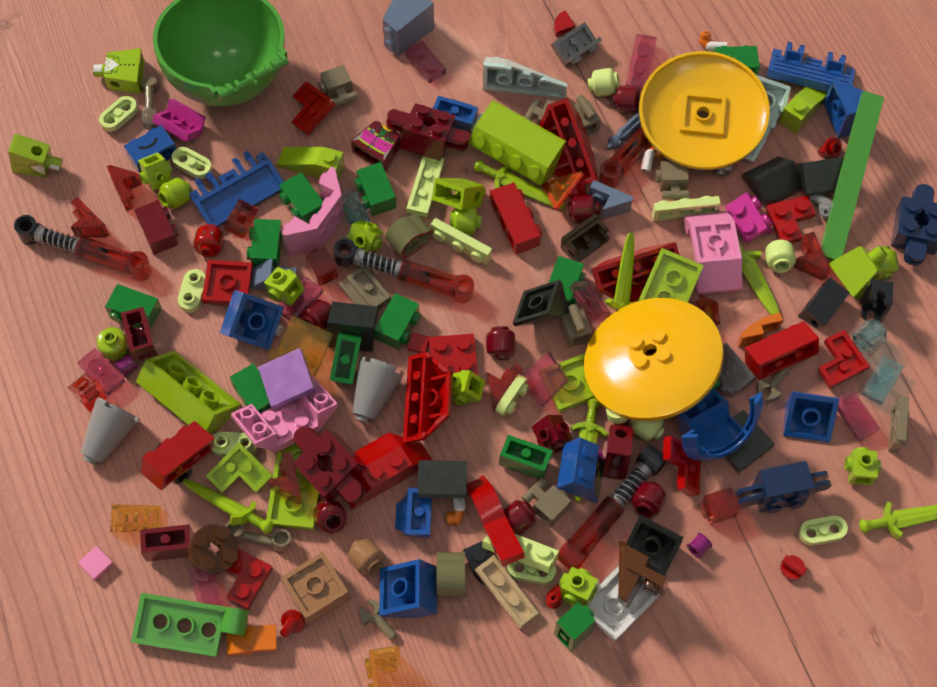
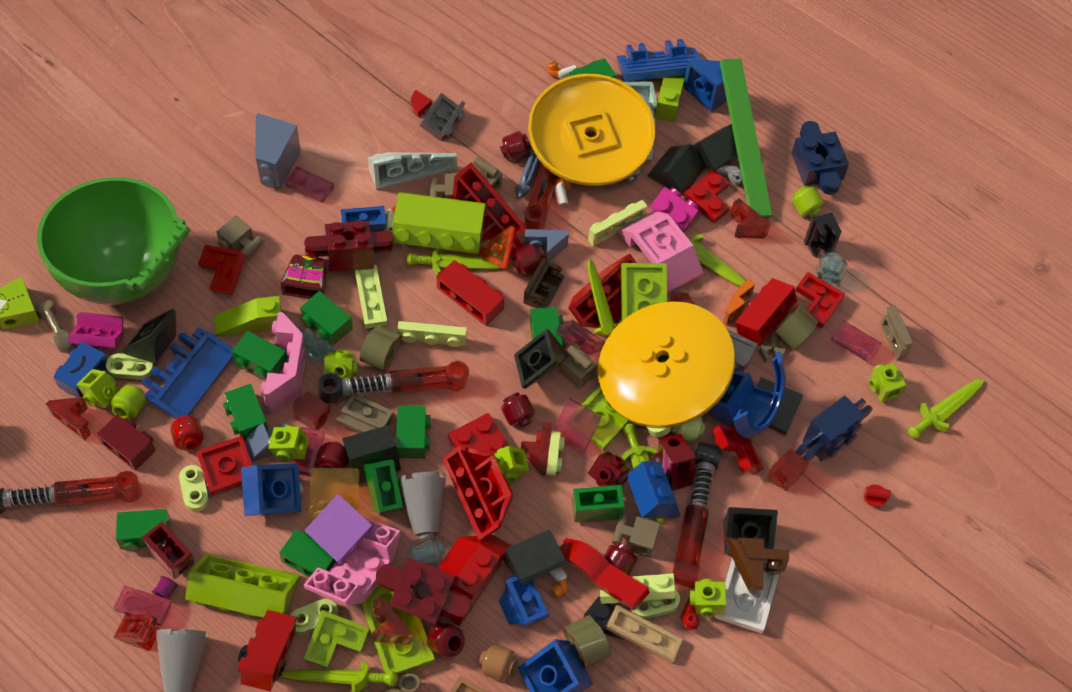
camera: 30 degrees left, 5 degrees down
(88, 223) = (53, 466): clear red slope -> none
(112, 343) = (142, 572): lime head -> none
(117, 114) = (27, 350): yellowish green plate -> none
(222, 146) = (153, 337): none -> pearl dark grey slope
(241, 218) = (209, 399): clear red slope -> none
(355, 432) = (427, 551): none -> clear light blue head
(418, 343) = (440, 444): red piece -> none
(465, 220) = (426, 311): lime head -> none
(468, 193) = (416, 290): lime torso -> none
(574, 626) = (724, 635): green brick -> none
(604, 82) = (486, 140): yellowish green head -> none
(641, 60) = (508, 109): clear pink plate -> none
(649, 499) = (724, 491): dark red head -> none
(672, 180) = (592, 202): dark tan brick -> none
(699, 545) = (788, 512): magenta axle -> none
(780, 256) = (720, 231): yellowish green head -> none
(802, 376) = (796, 326): none -> olive piece
(810, 416) = (820, 358): blue slope -> none
(821, 530) = (882, 453): yellowish green plate -> none
(823, 303) = (778, 256): black hinge -> none
(831, 148) = (711, 123): red plate -> none
(858, 268) = (793, 214): lime torso -> none
(882, 380) = (861, 302): clear light blue plate -> none

